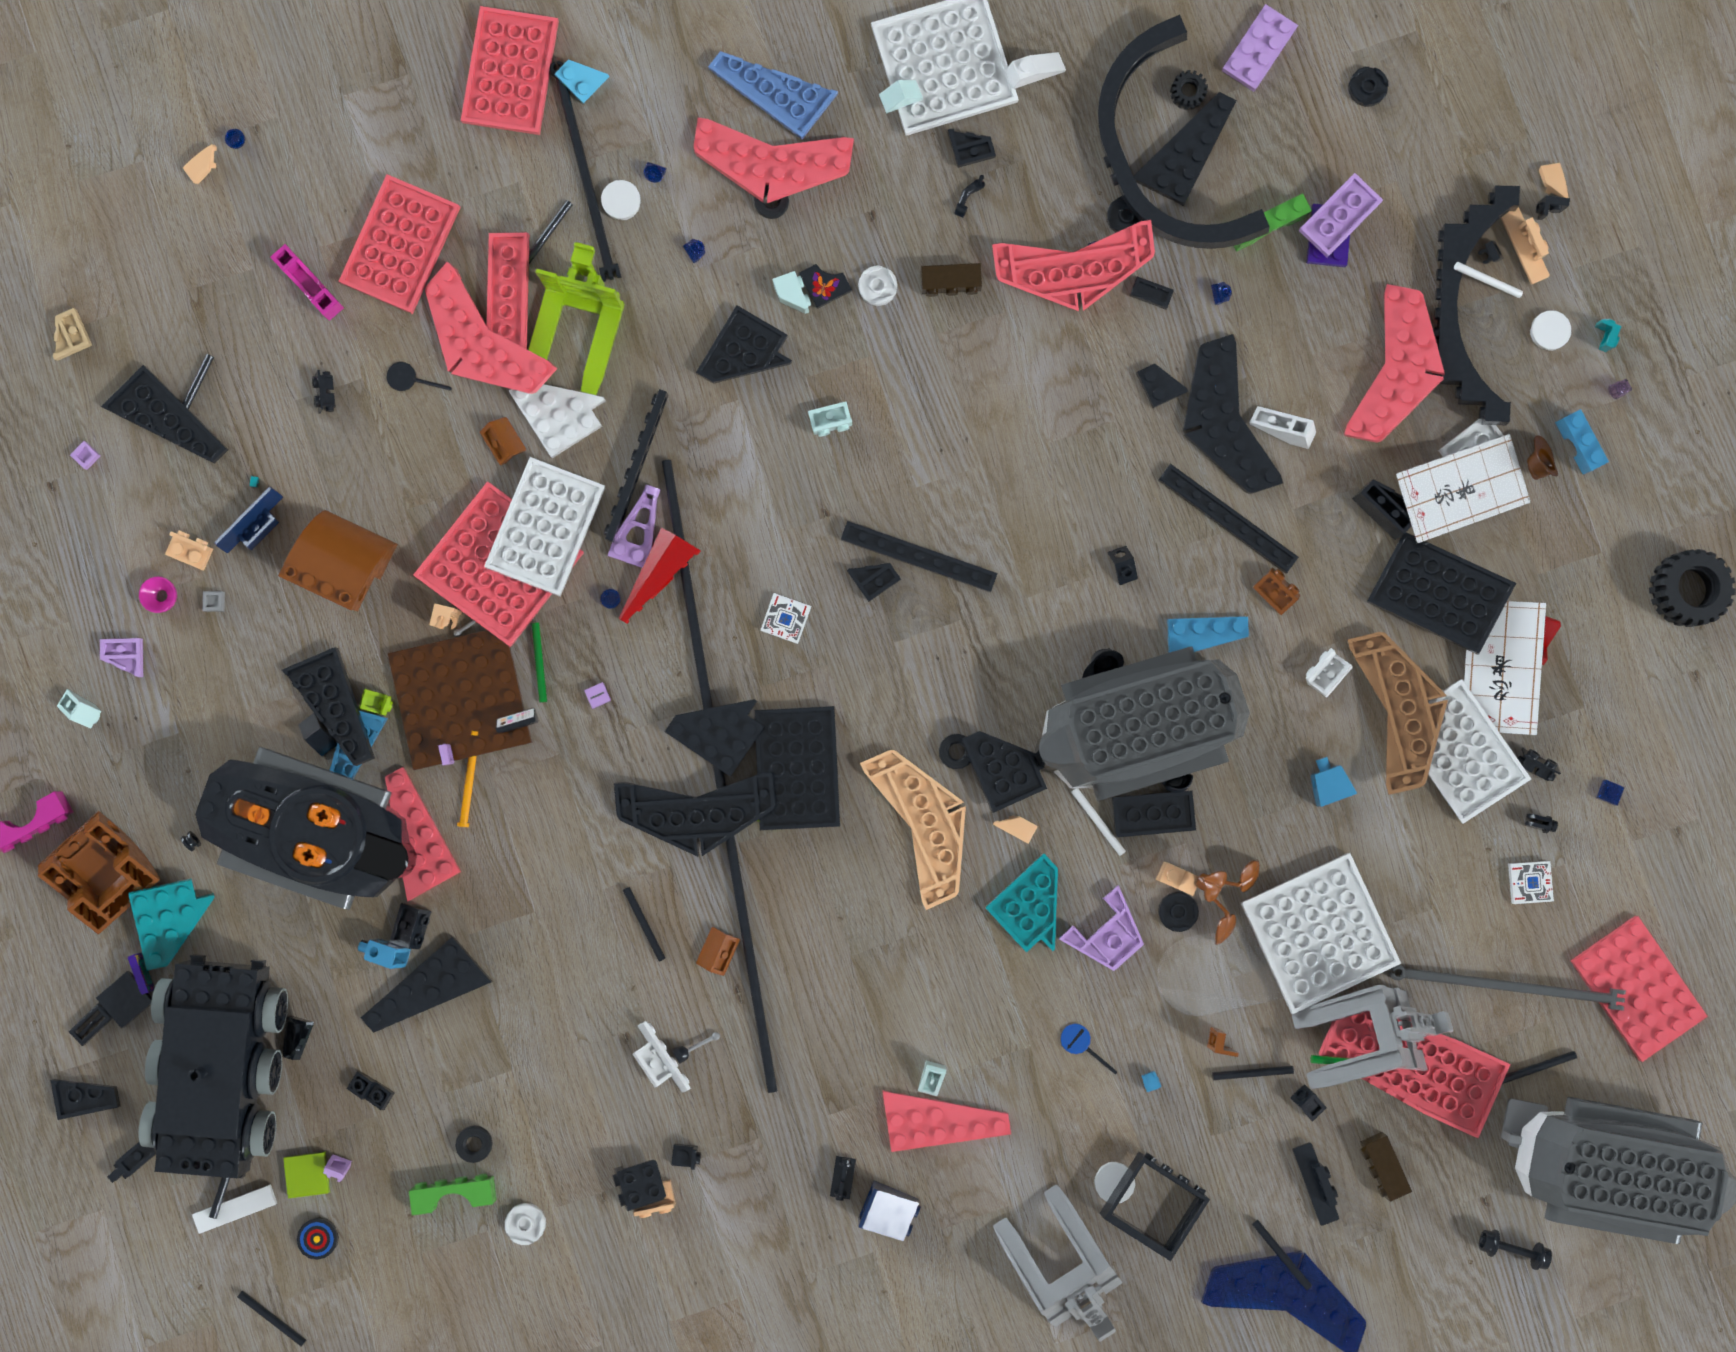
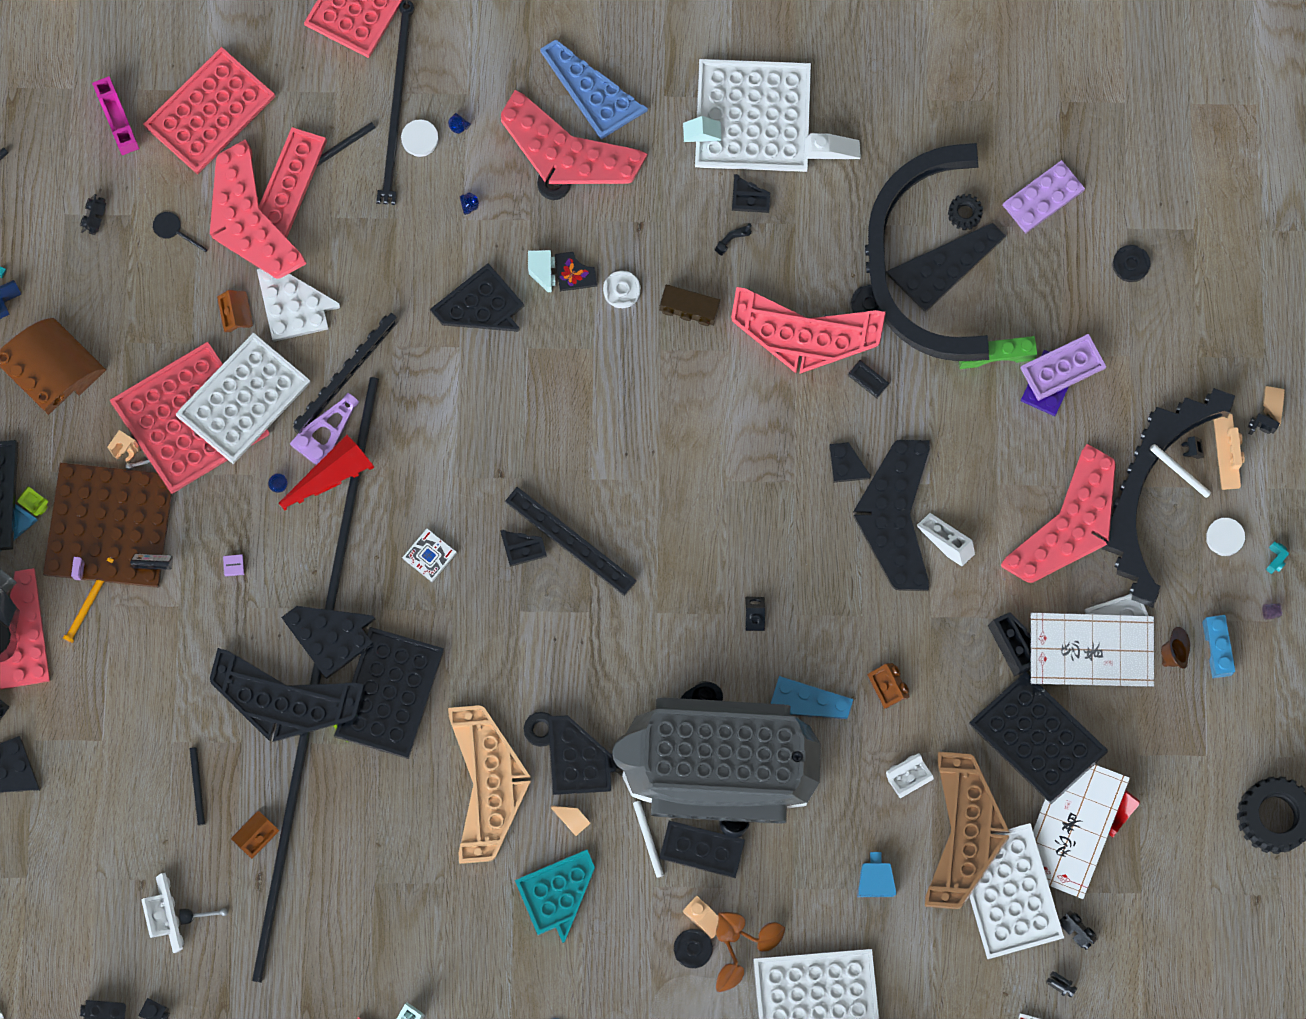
camera: 25 degrees right, 10 degrees down
(539, 662) = (192, 518): green bar -> none
(580, 79) = (423, 22): medium azure wing -> none
(586, 296) = (356, 209): lime piece -> none
(830, 418) = (535, 391): light aqua bracket -> none
(1114, 940) = (623, 953): lavender wing -> none
(1221, 292) = (932, 400): clear blue plate -> none
(1228, 518) = (867, 605): black tile -> none
(1610, 792) = (1138, 980): clear blue plate -> none

